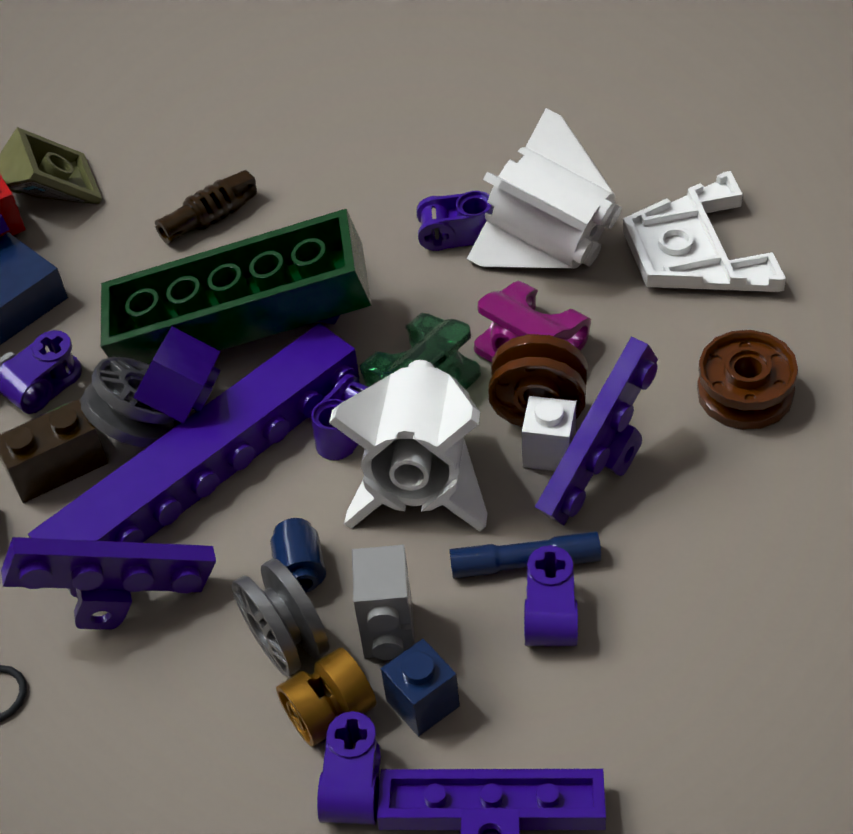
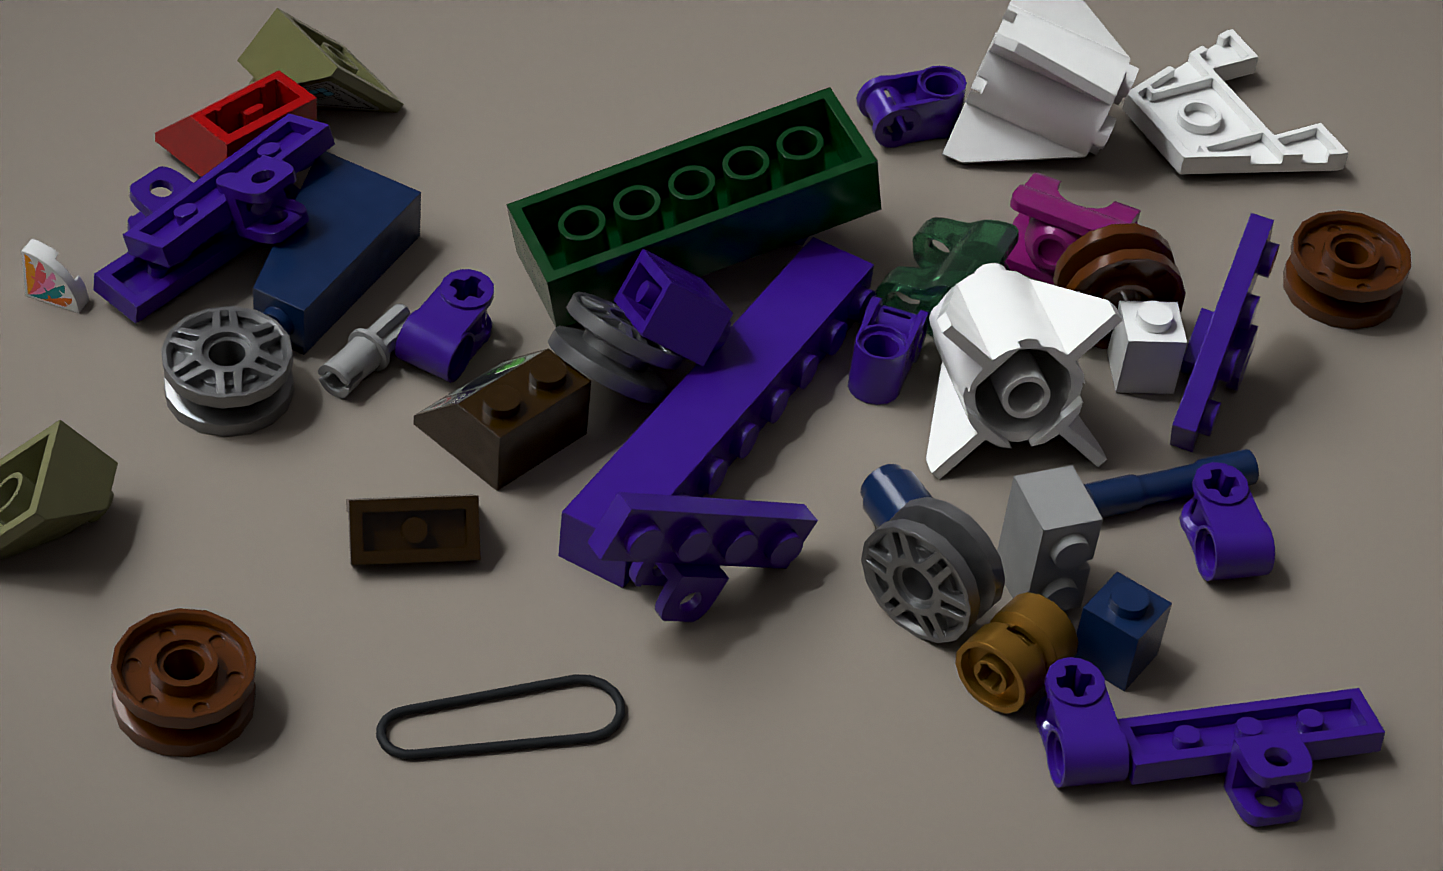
camera: 25 degrees left, 5 degrees down
(208, 206) = (567, 106): dark brown hinge -> none

